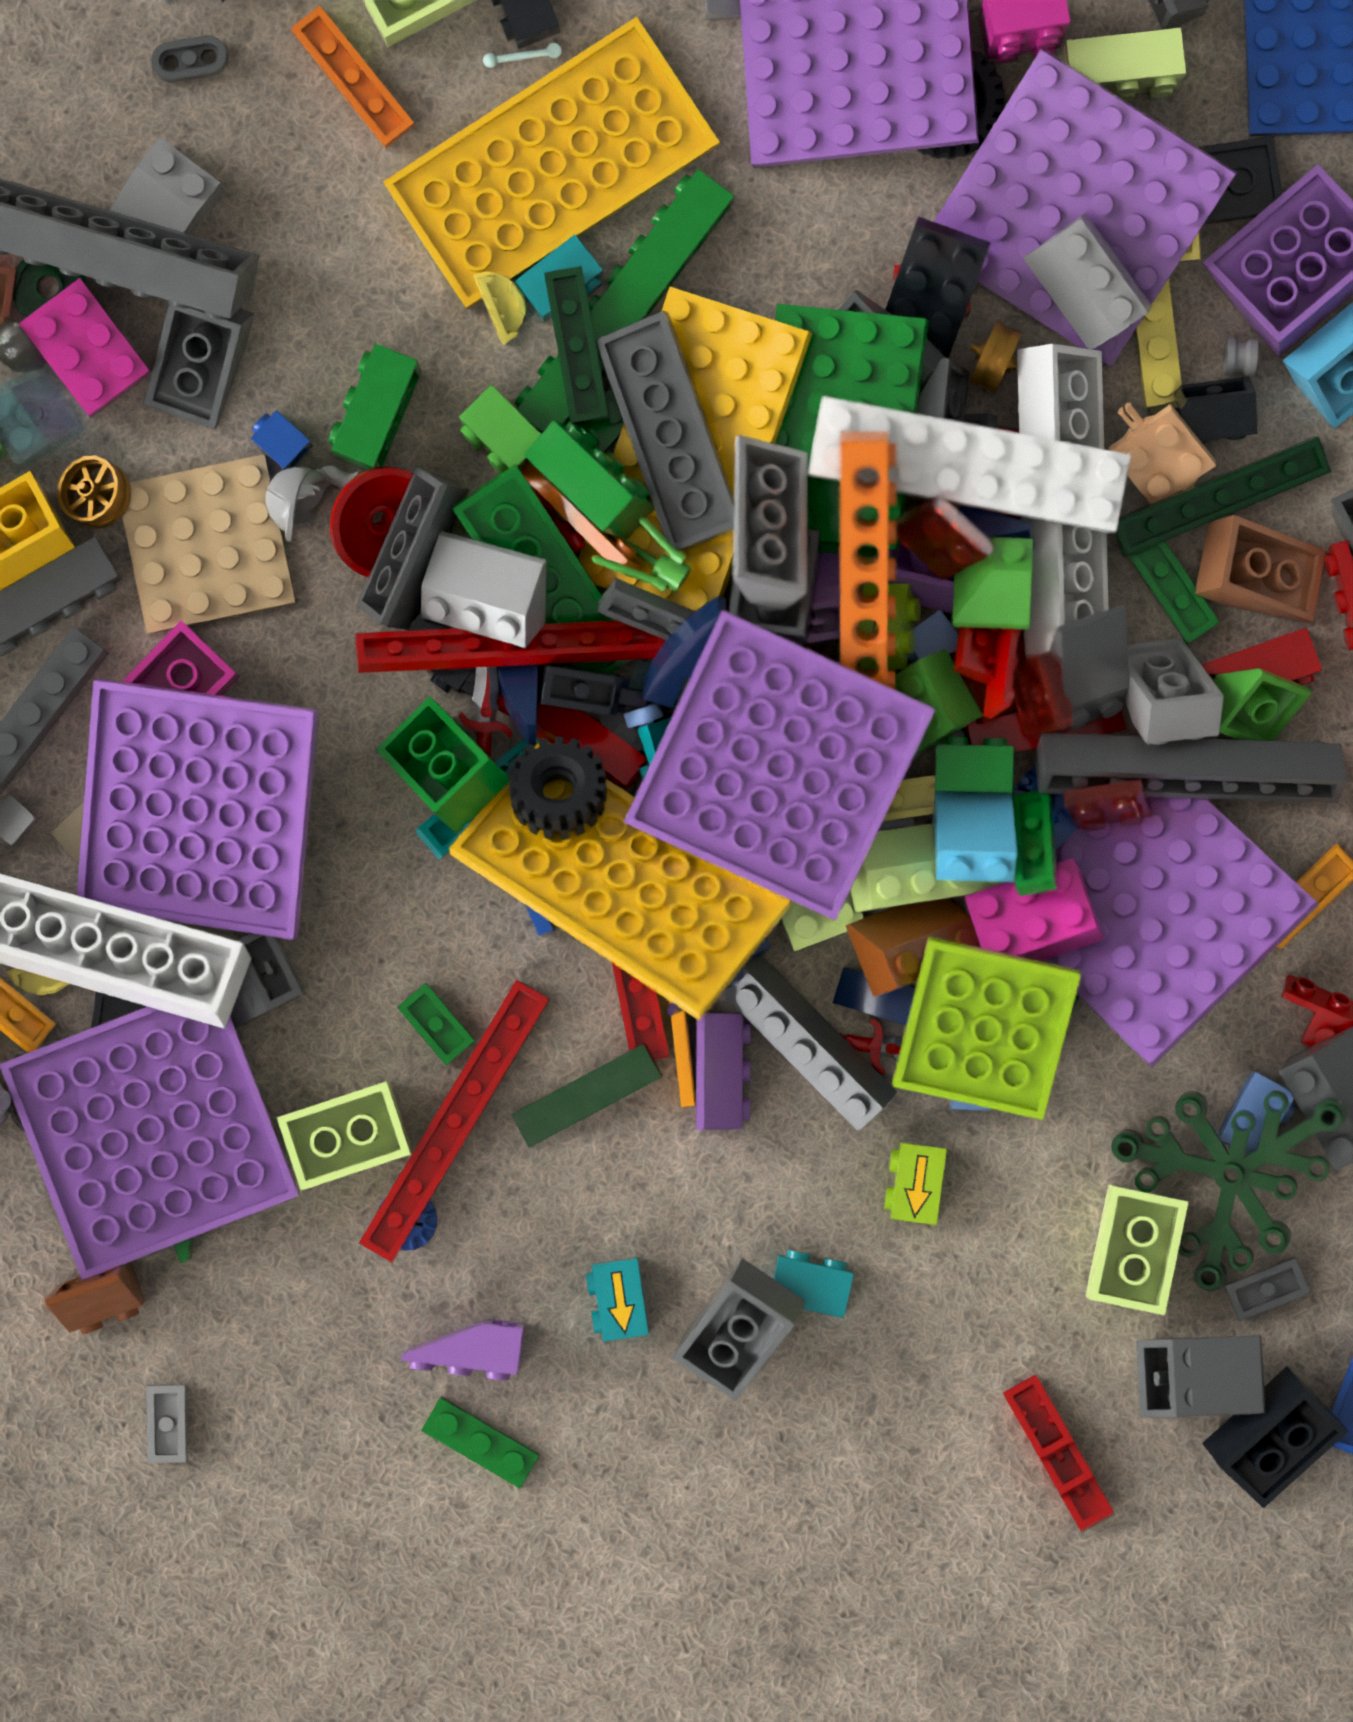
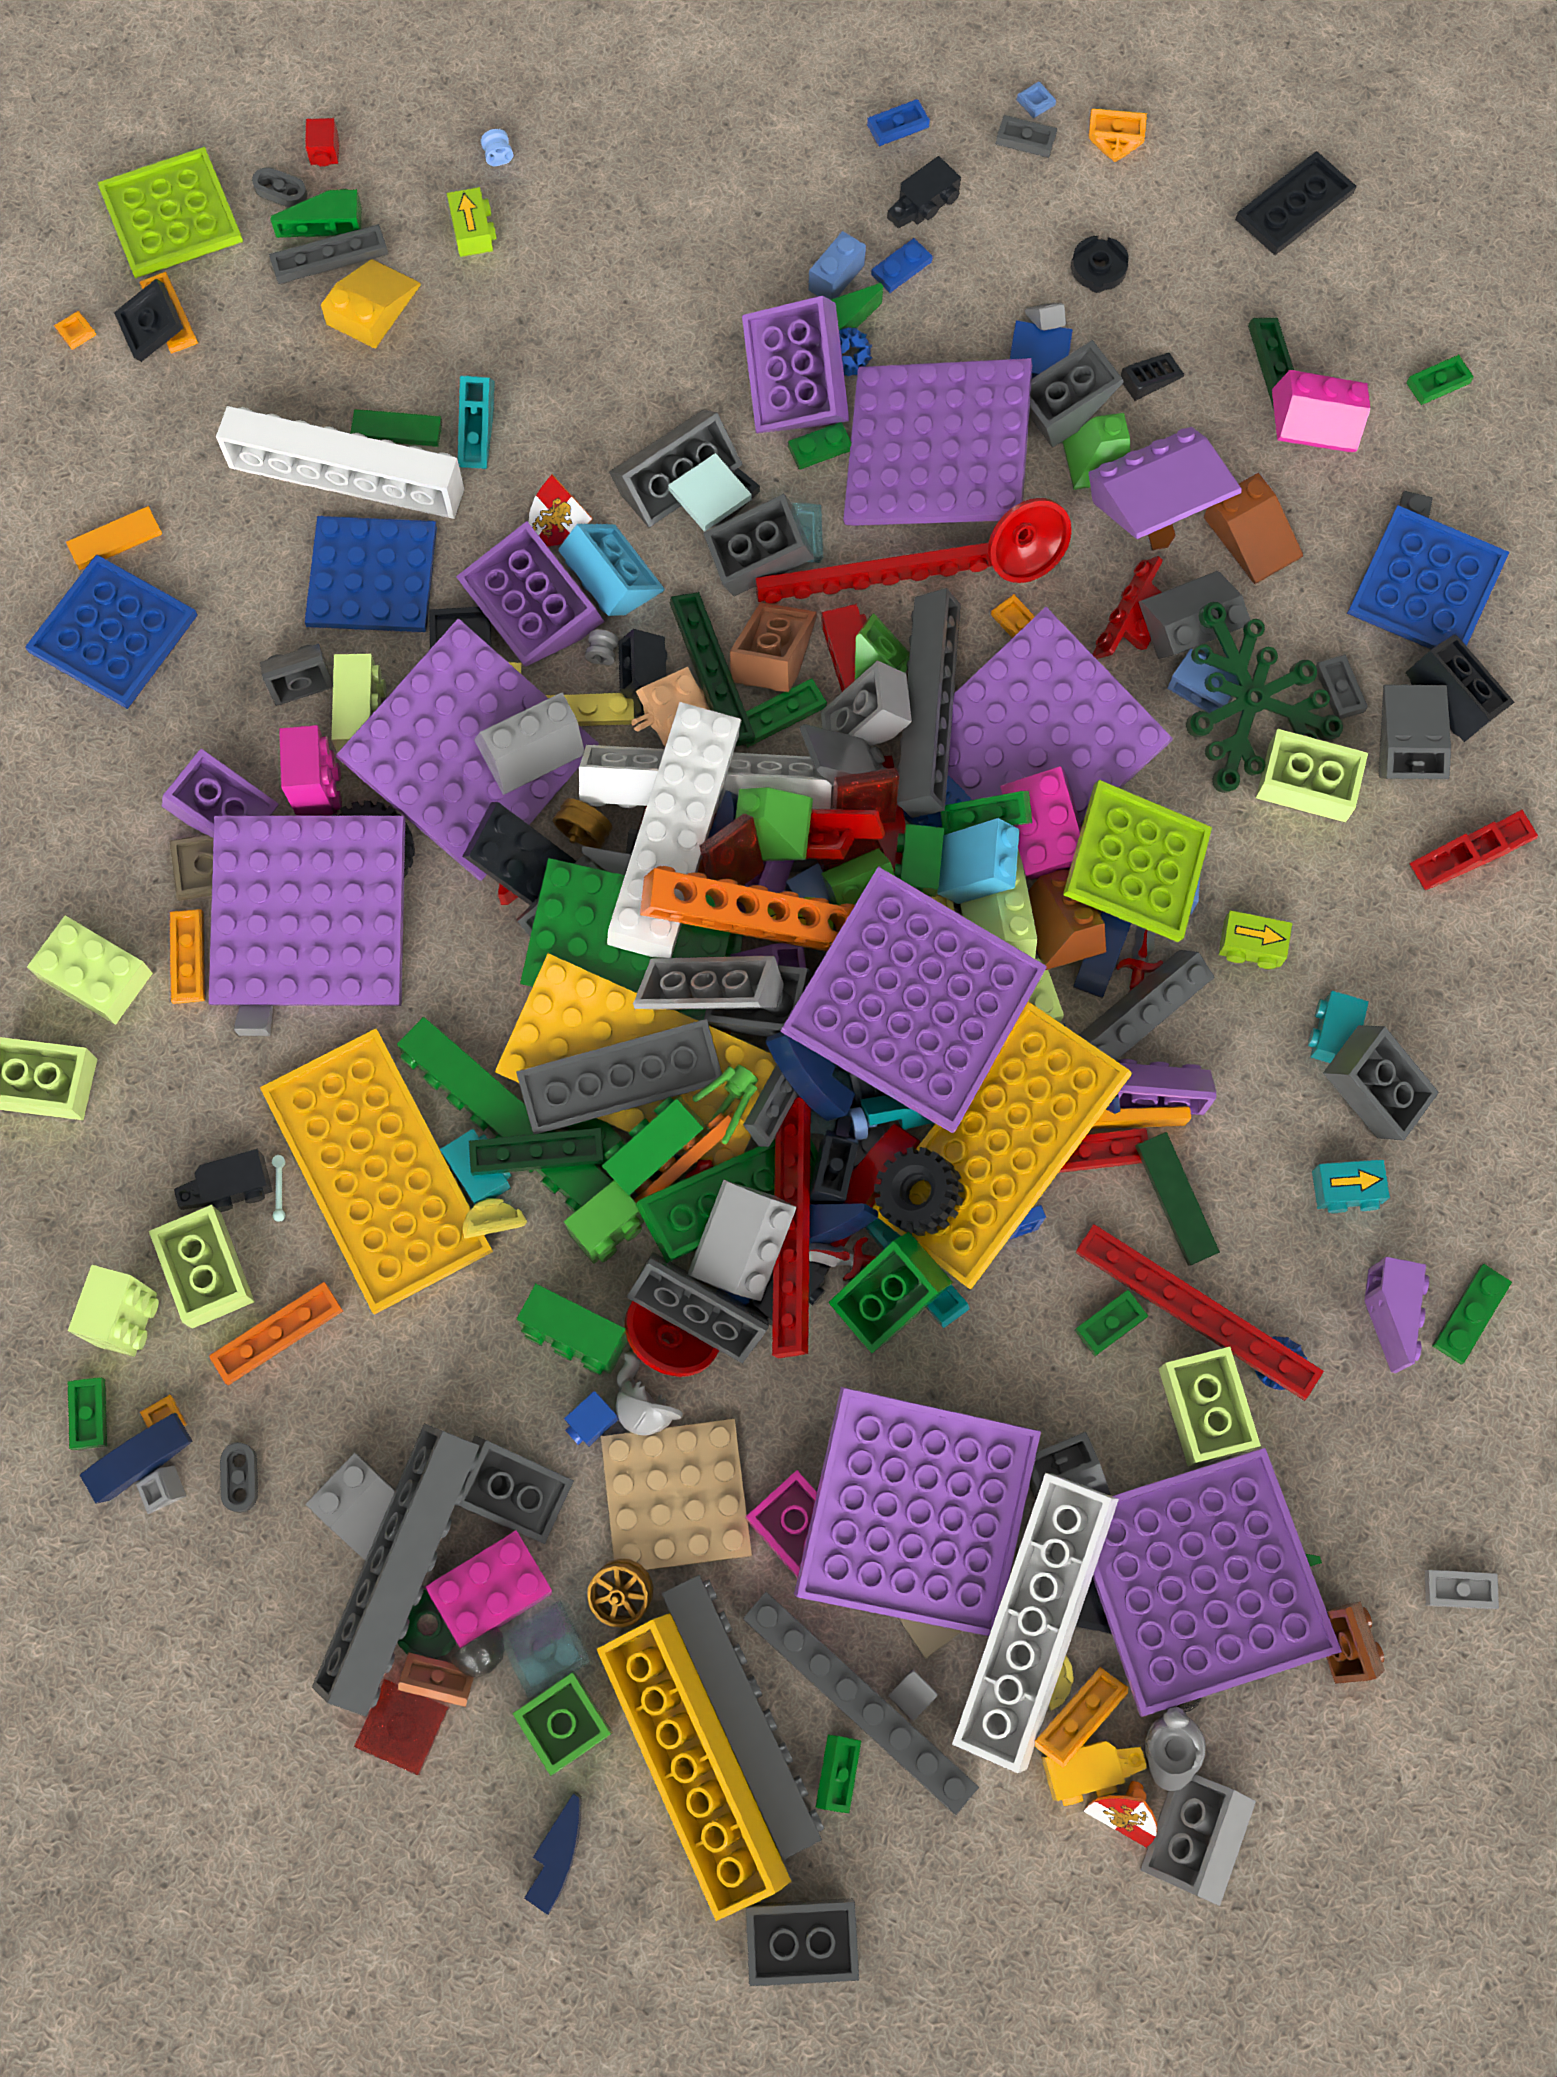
camera: 90 degrees left, 15 degrees down
(1108, 804) = (957, 749): clear red plate -> none

